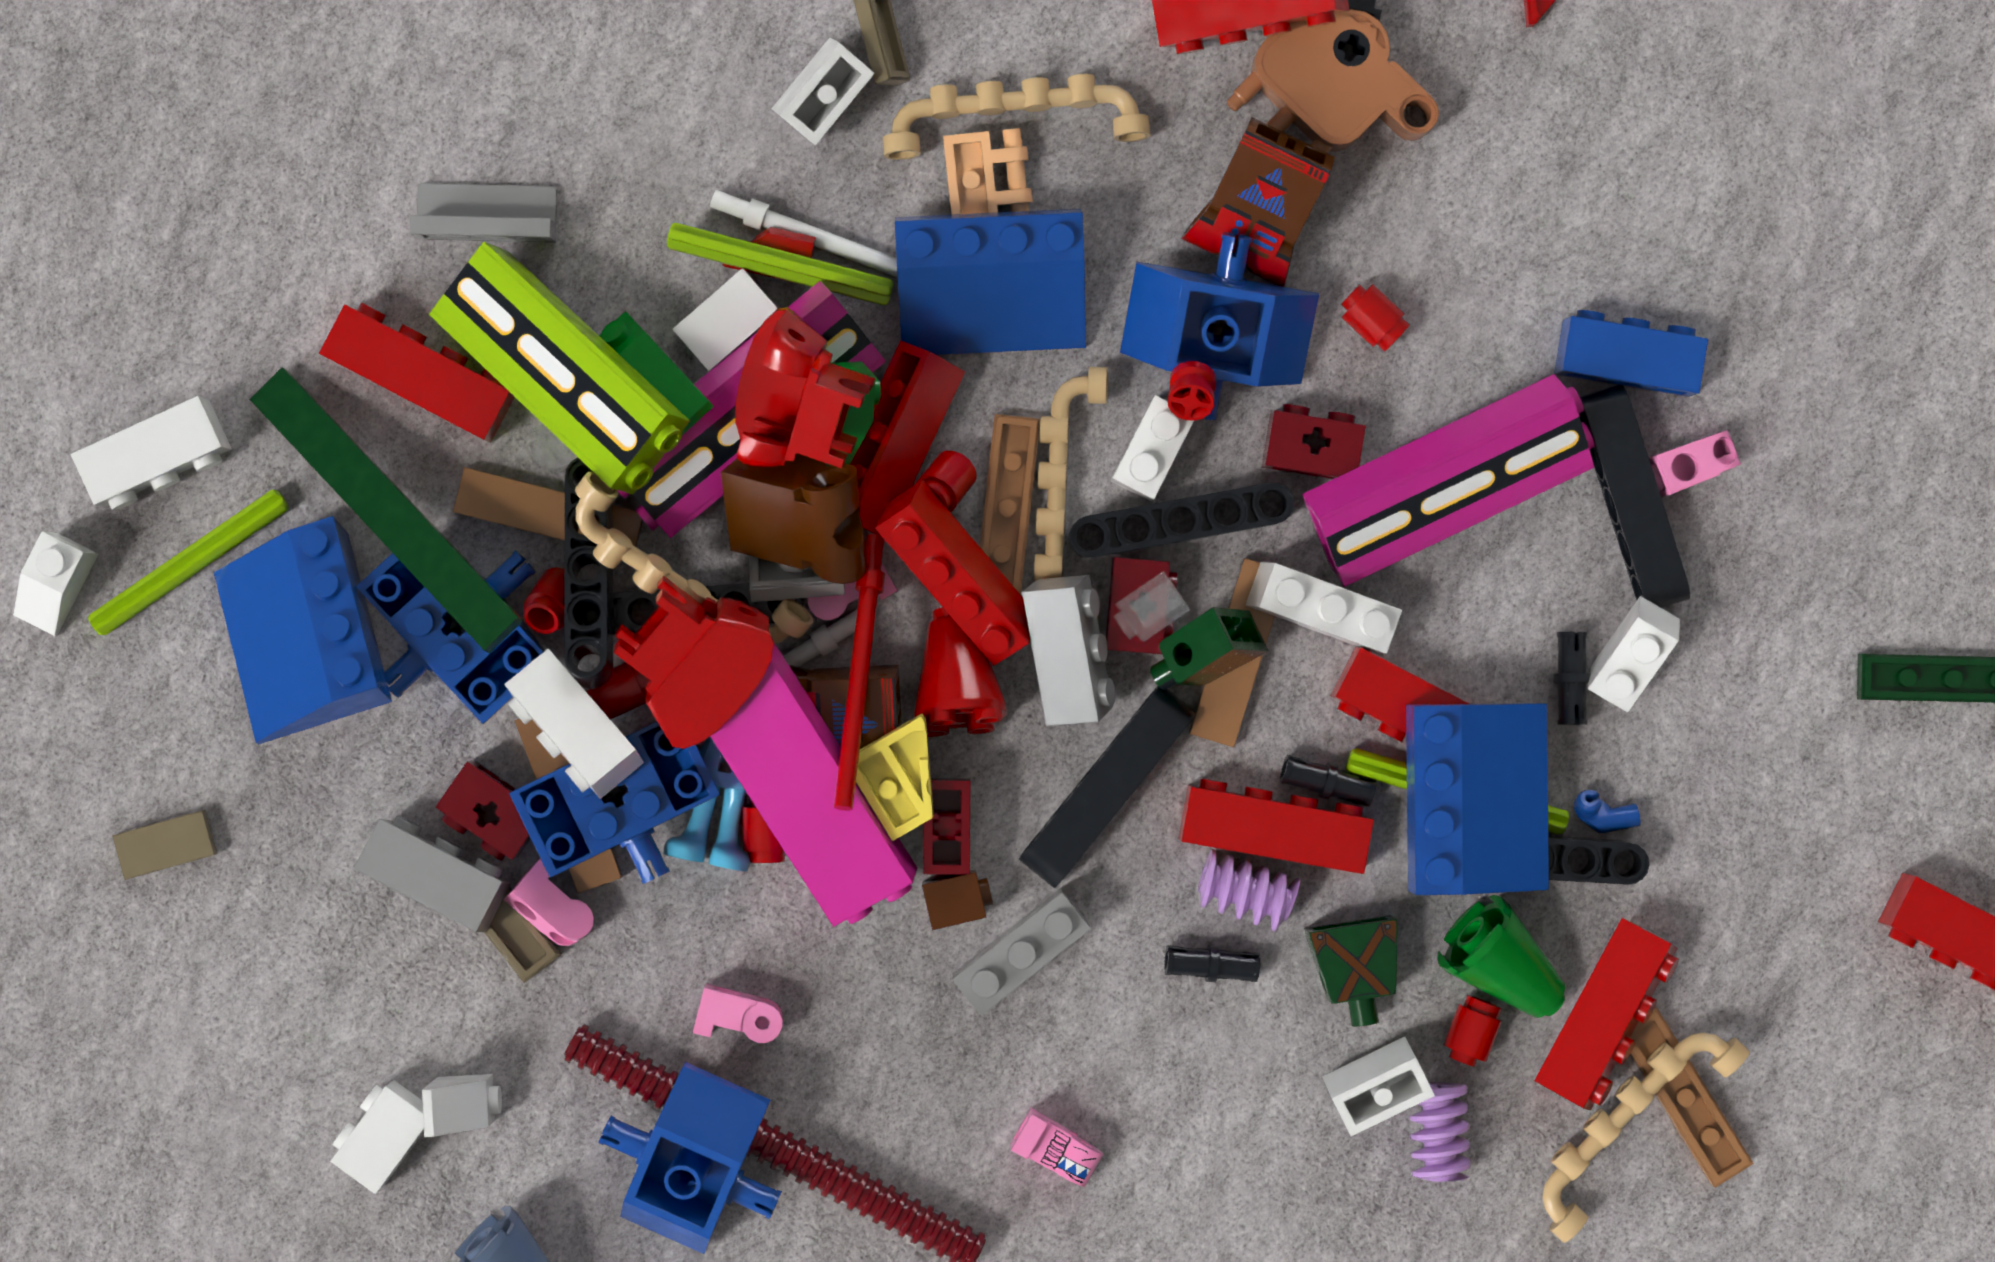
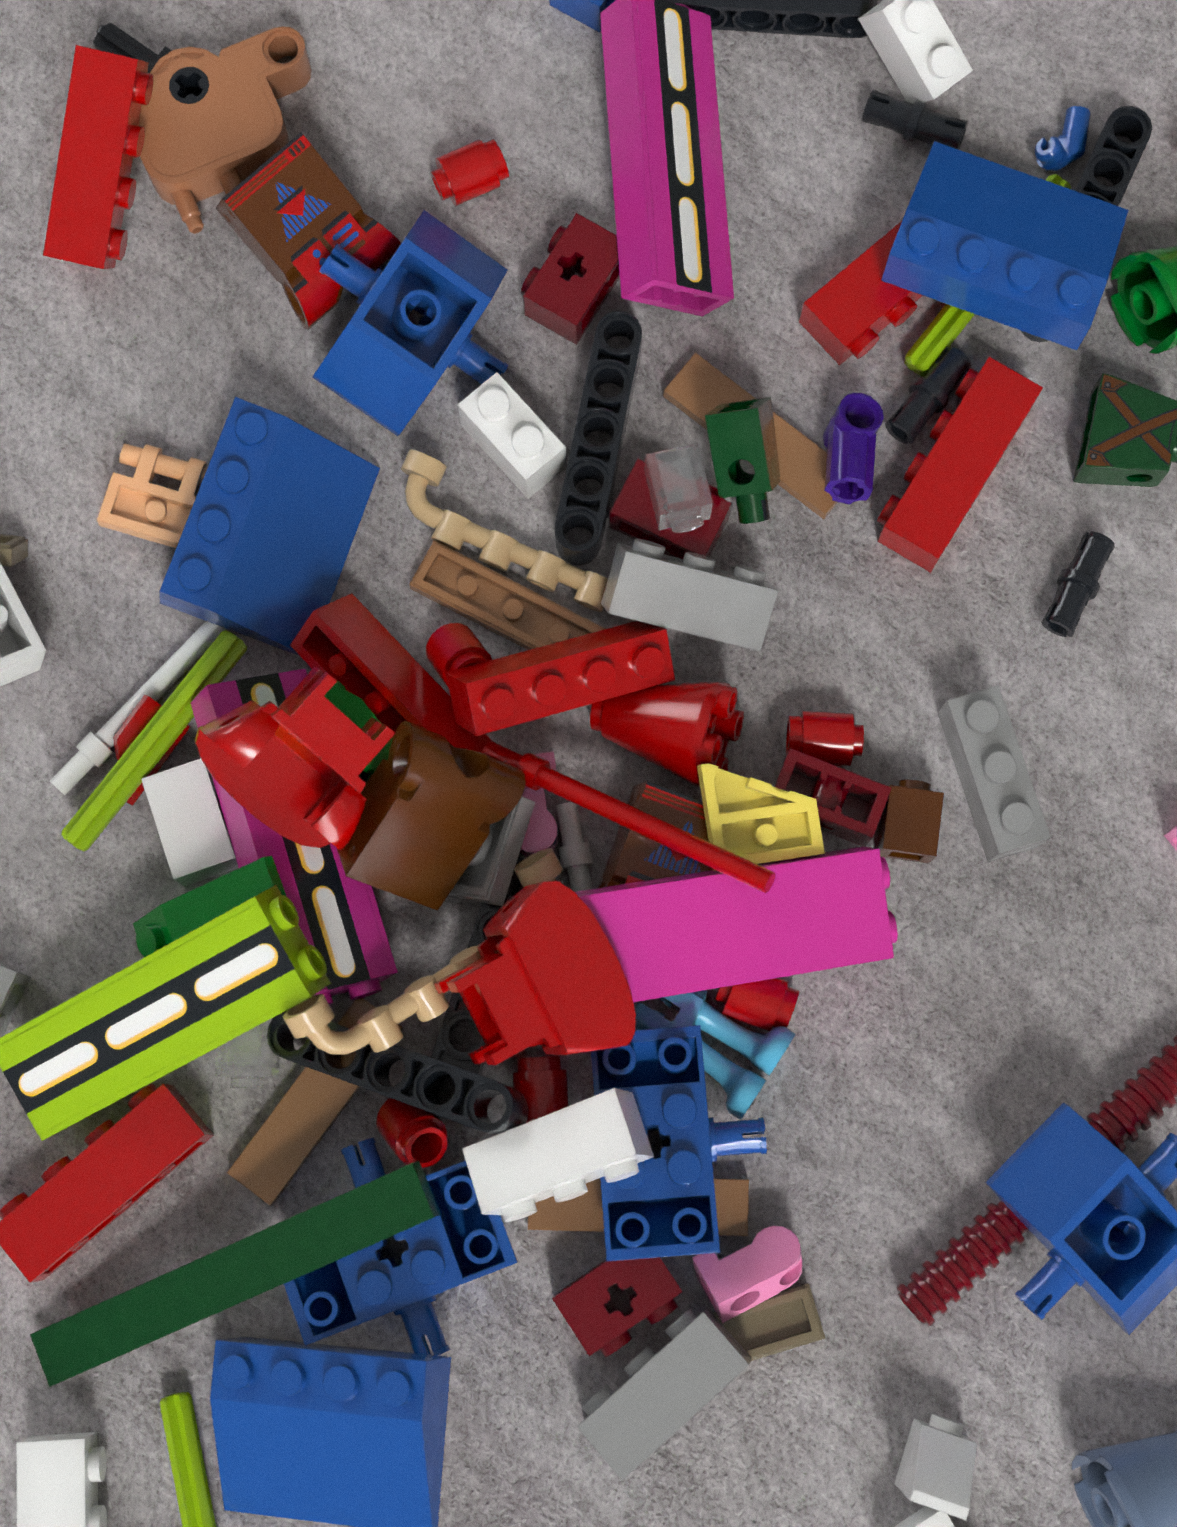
camera: 65 degrees left, 10 degrees down
(754, 1015) = (946, 1109): bright pink leg -> none
(998, 804) = (825, 736): none -> red brick
(1034, 97) = (101, 418): tan bar -> none
(1107, 786) = (849, 619): black beam -> none
(1198, 400) = (481, 357): red wheel -> none
(1247, 890) = (1013, 514): lavender piece -> none
(1248, 735) = (851, 448): none -> dark purple piece
(1323, 607) = (746, 325): white brick -> none

